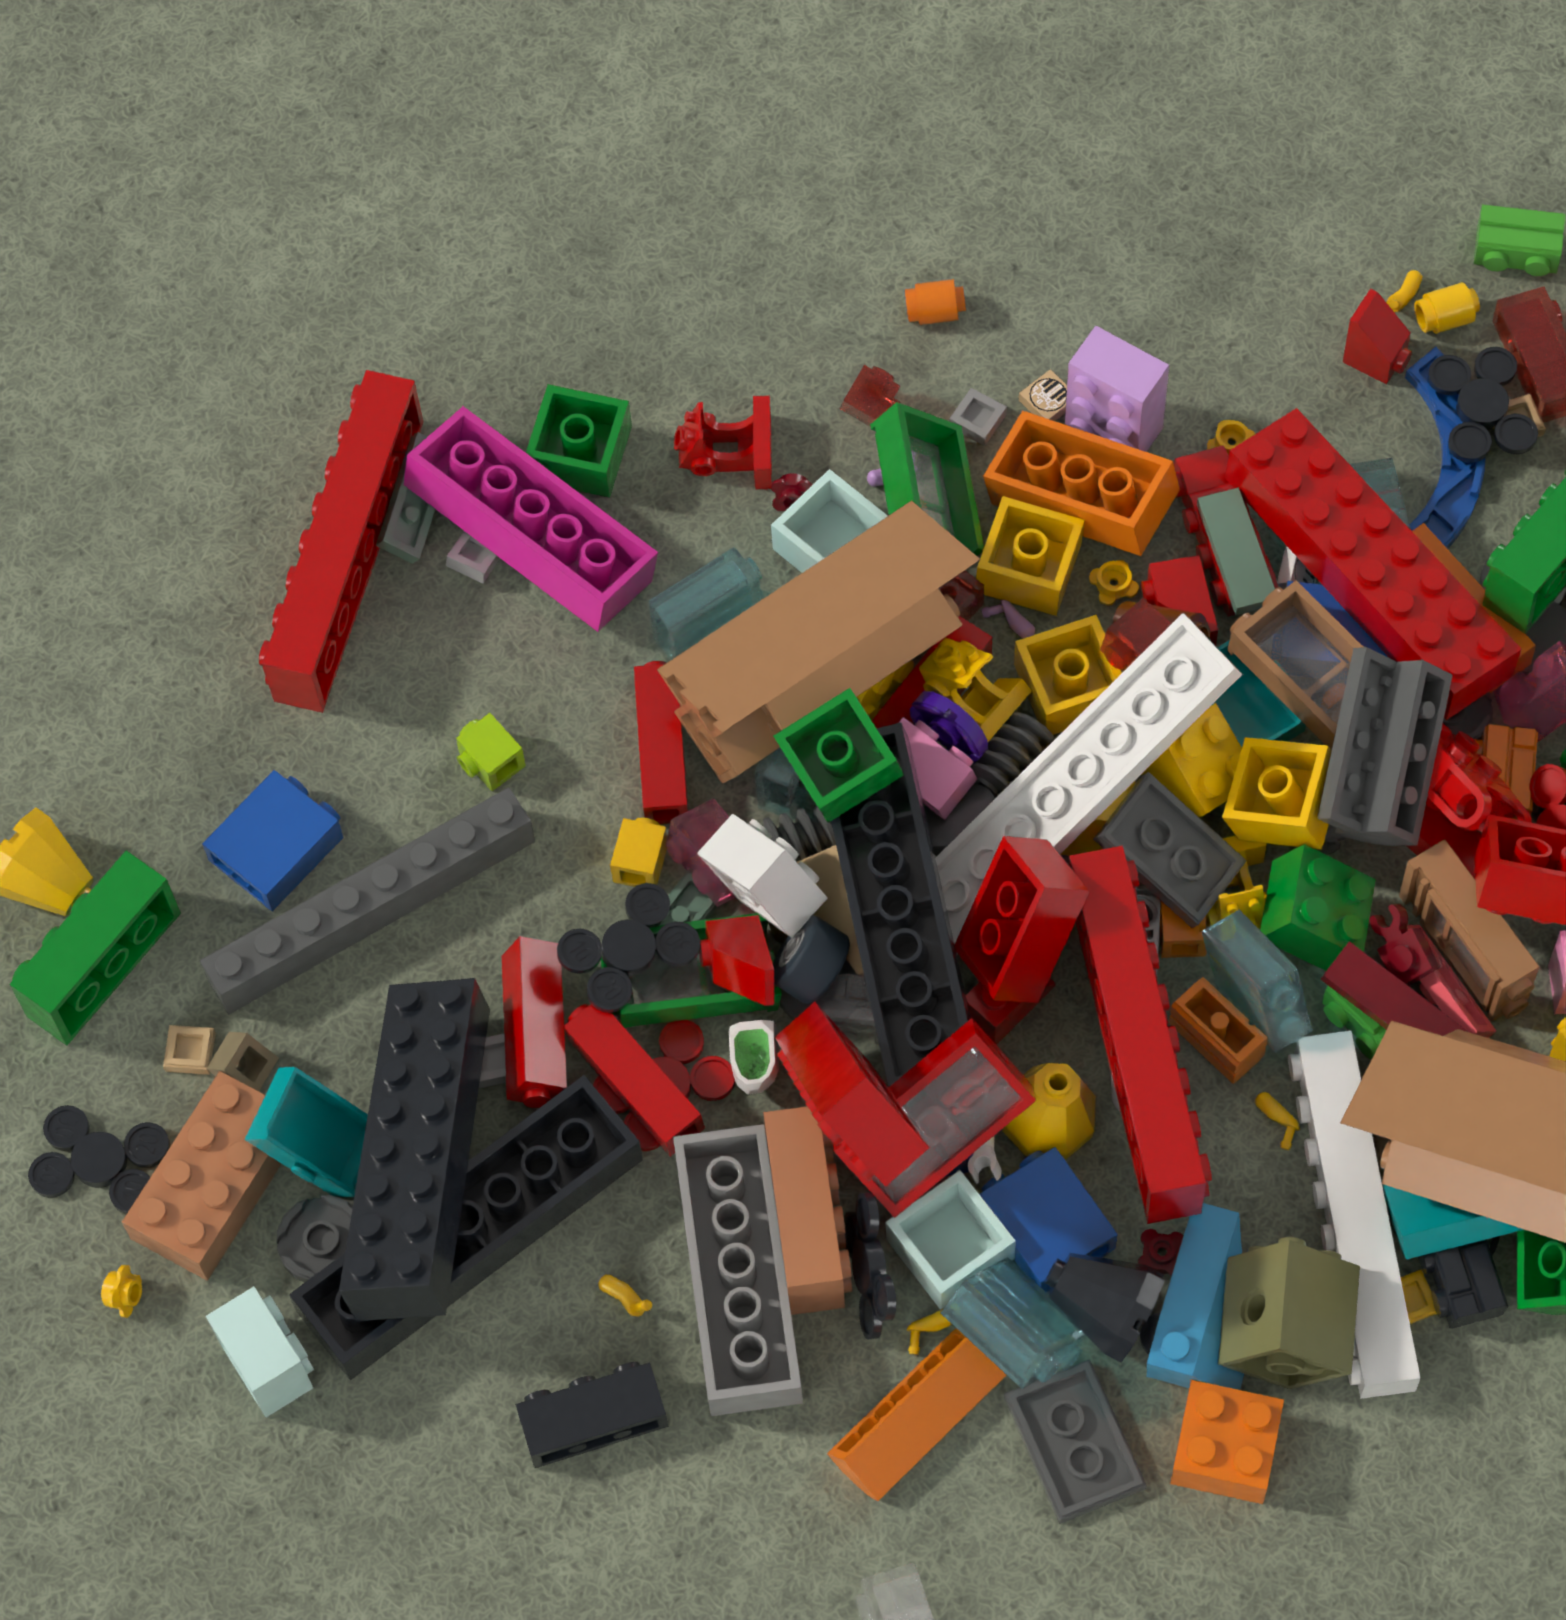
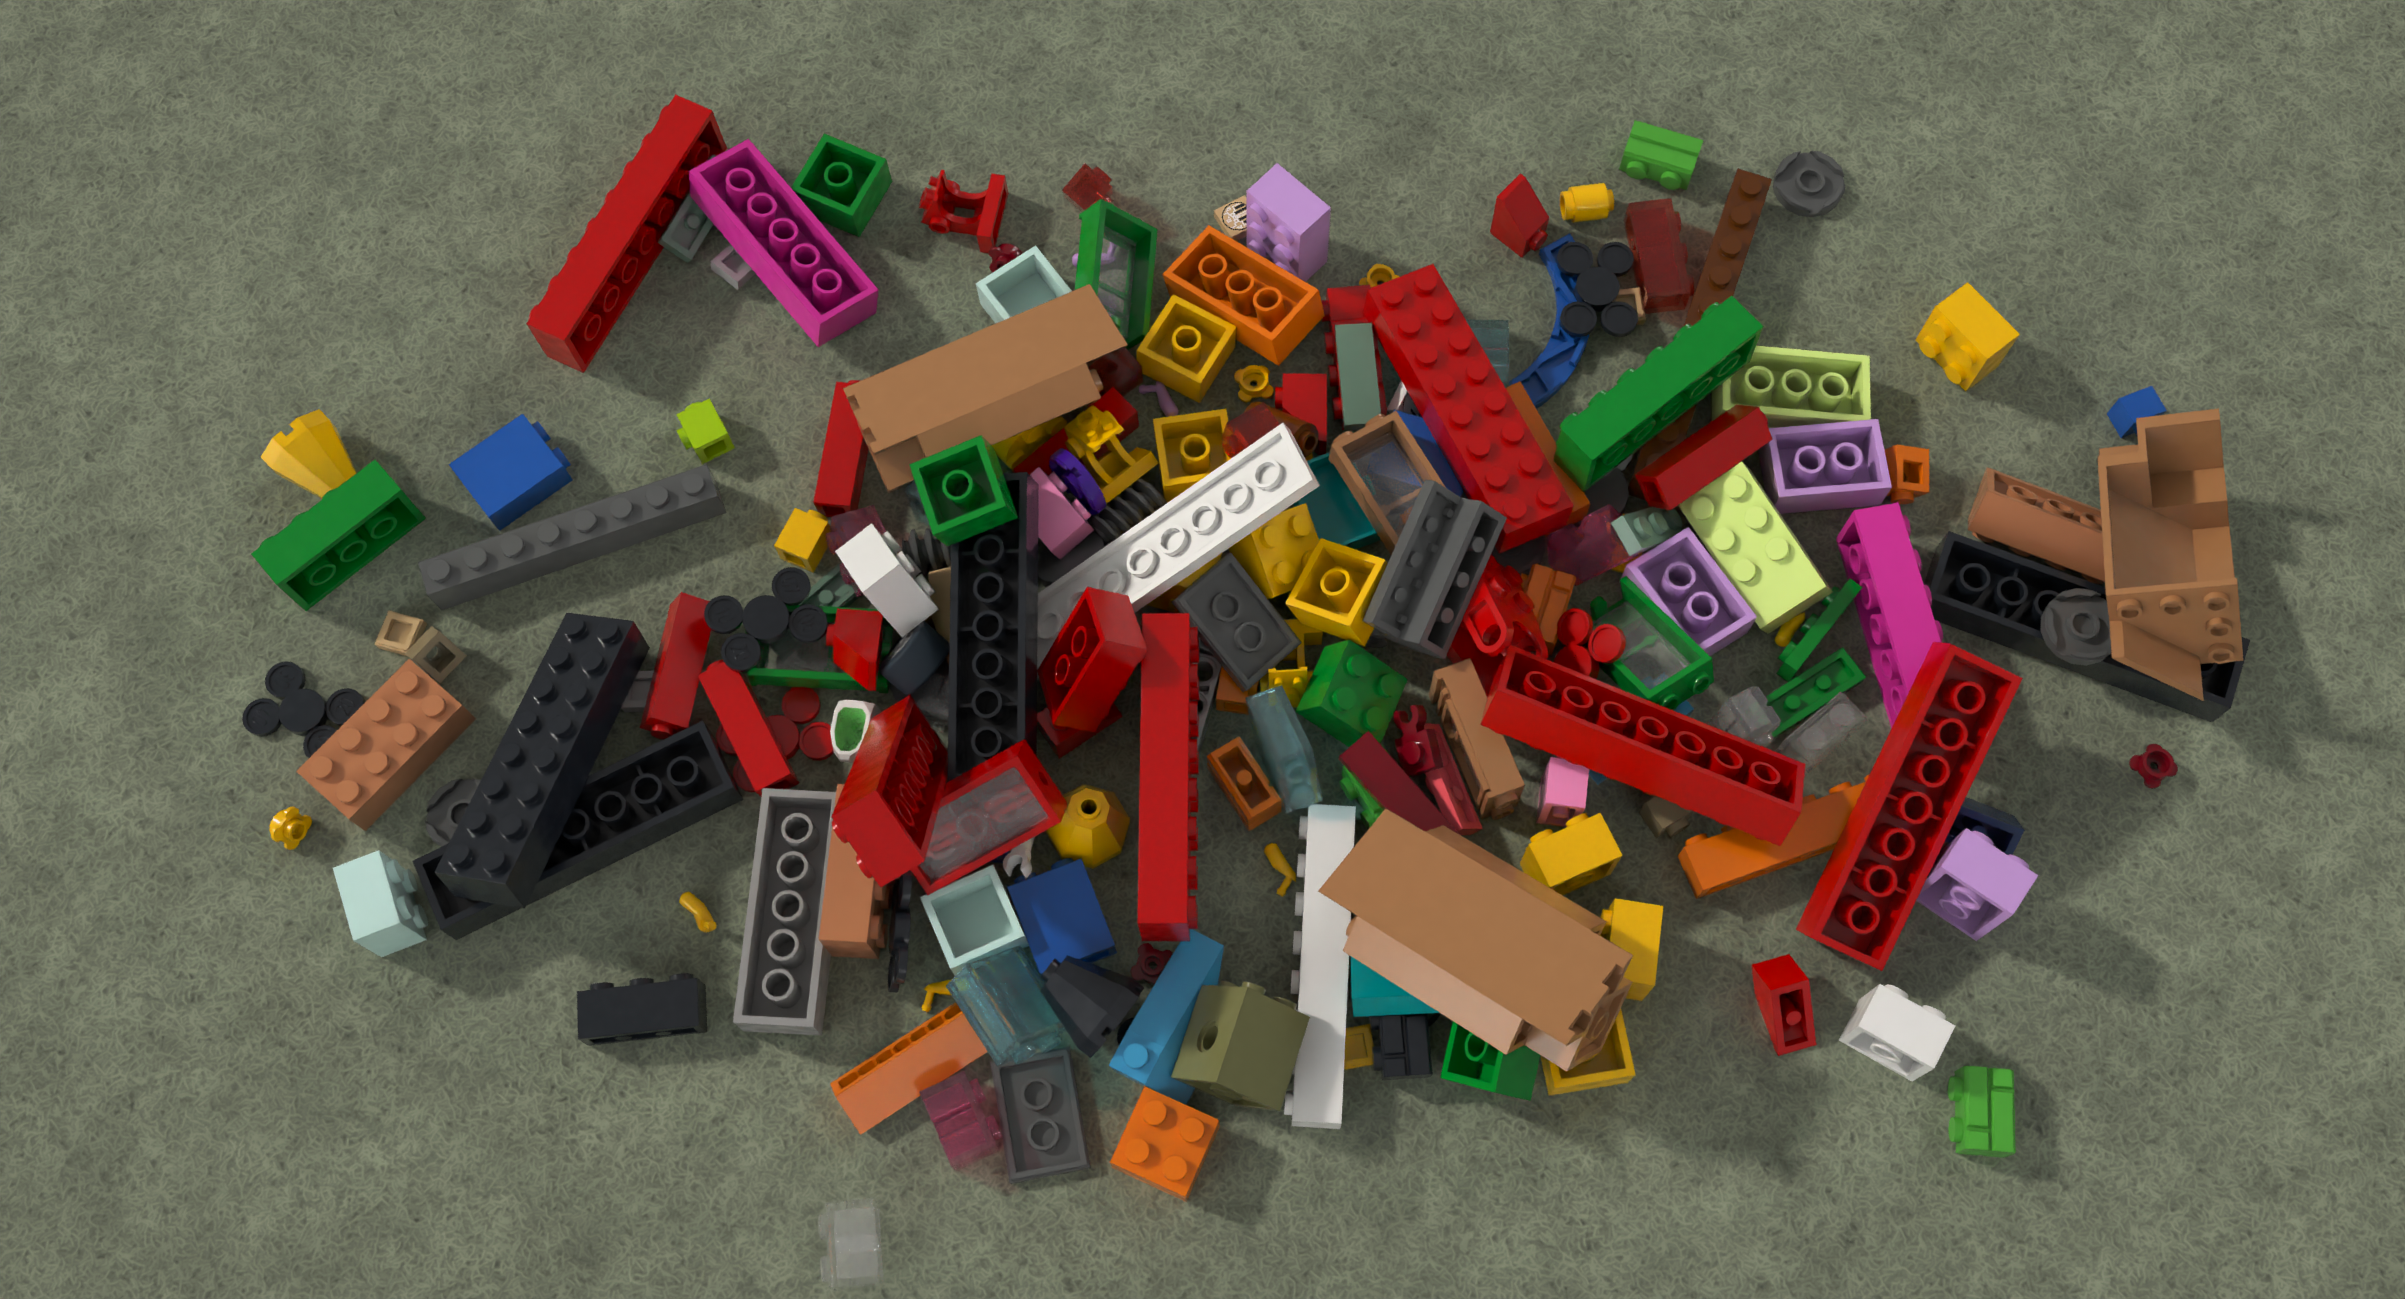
camera: 10 degrees right, 5 degrees up
(310, 1131) = (463, 721): teal container -> none
(704, 602) = (906, 335): clear light blue brick -> none
(935, 302) = (1163, 122): orange brick -> none
(979, 416) = (1175, 224): light grey plate -> none
(988, 1463) = (961, 1120): none -> clear pink brick
(1407, 291) = (1556, 184): yellow piece -> none

